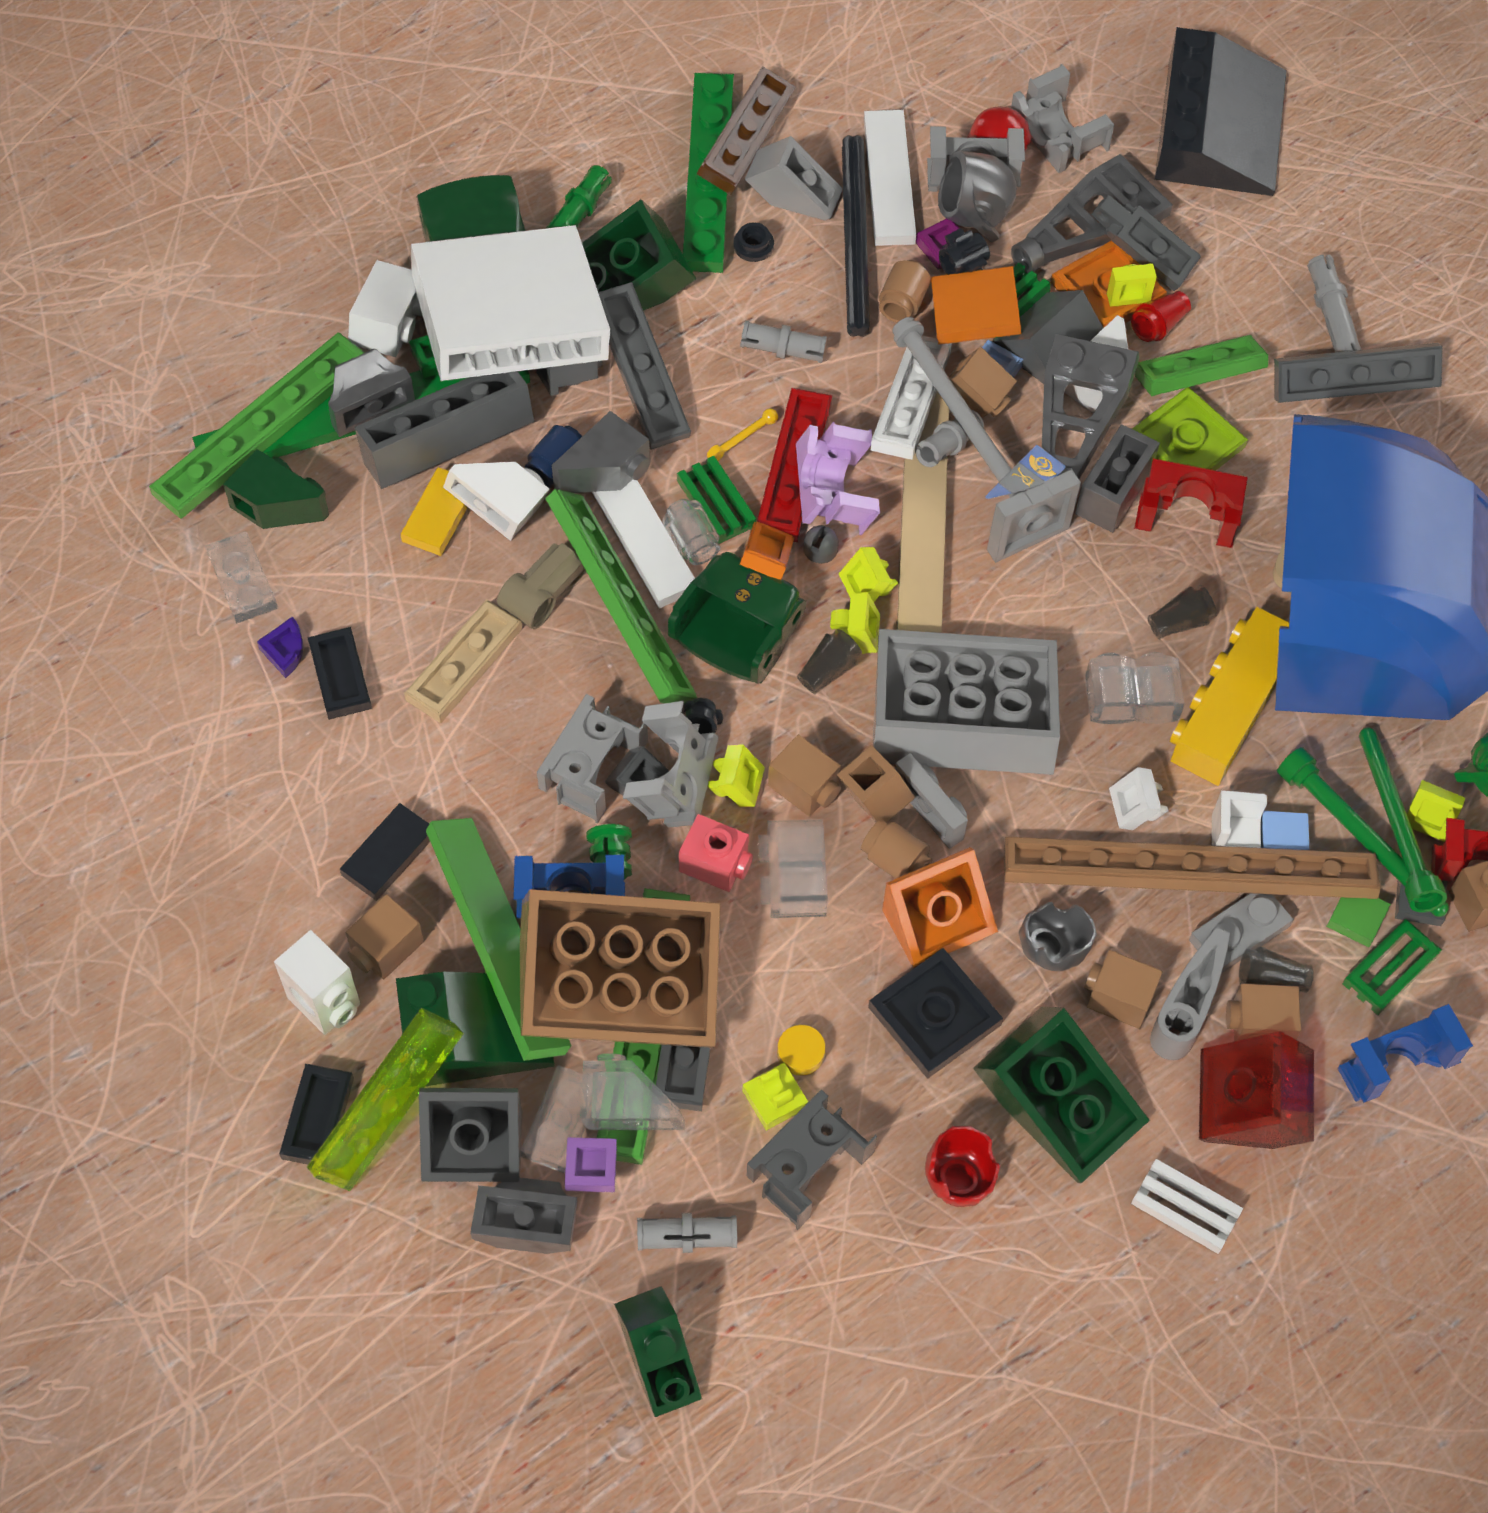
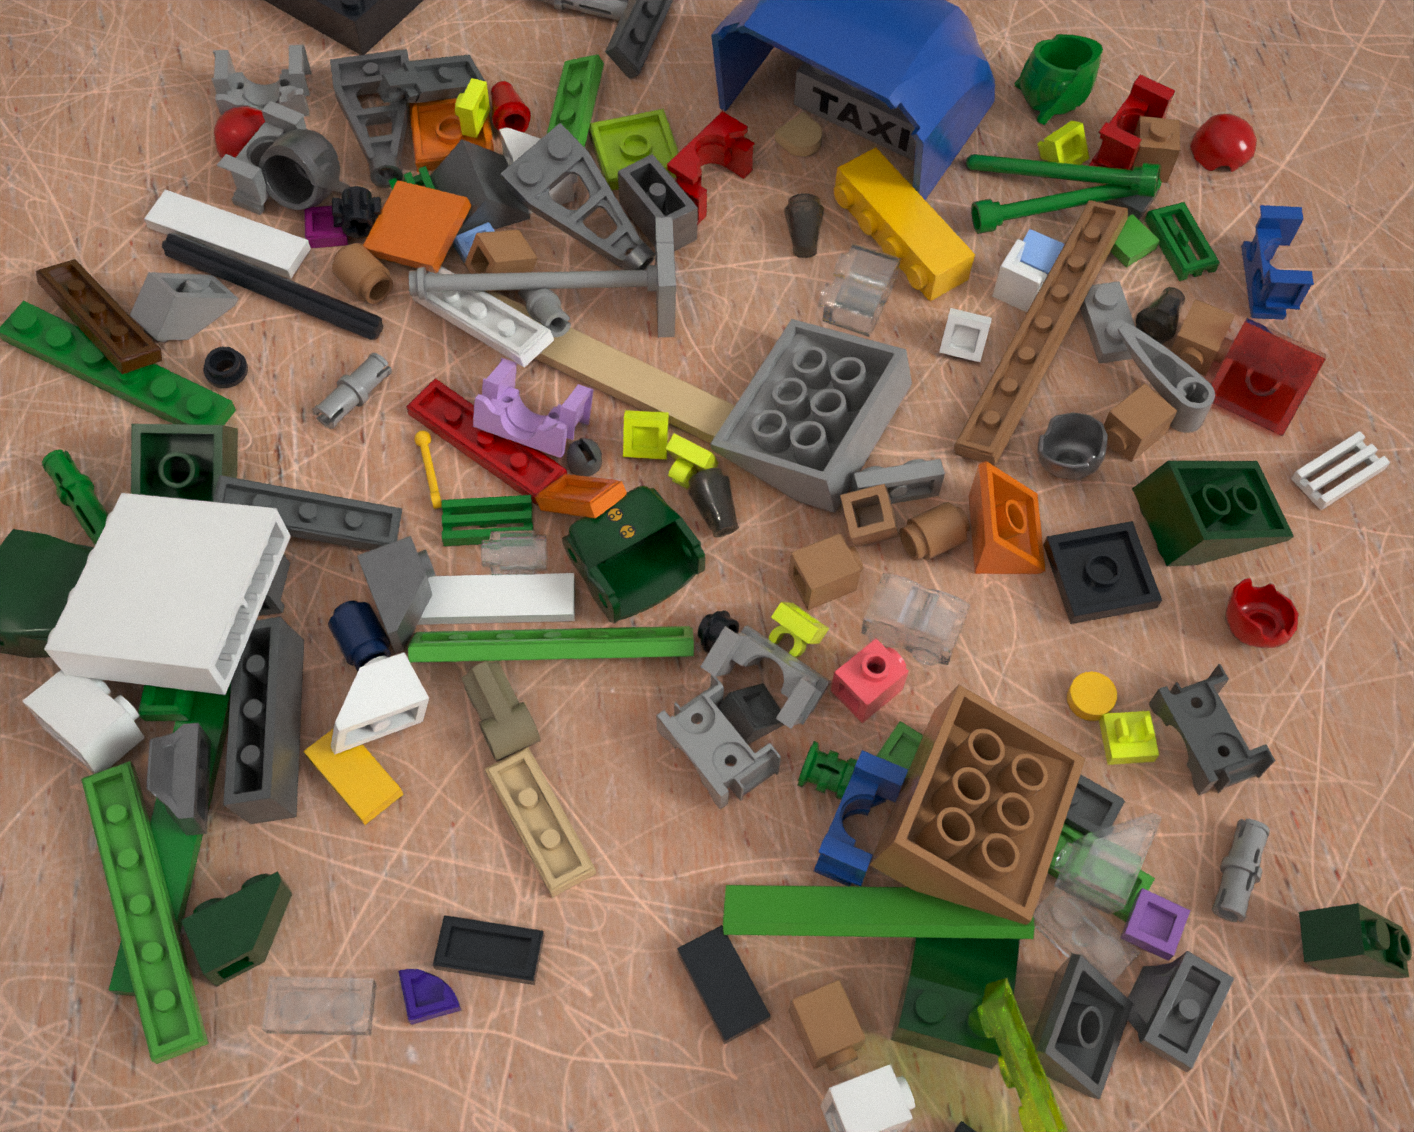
camera: 65 degrees left, 0 degrees up
(1028, 473) = (623, 259): sticker -> none

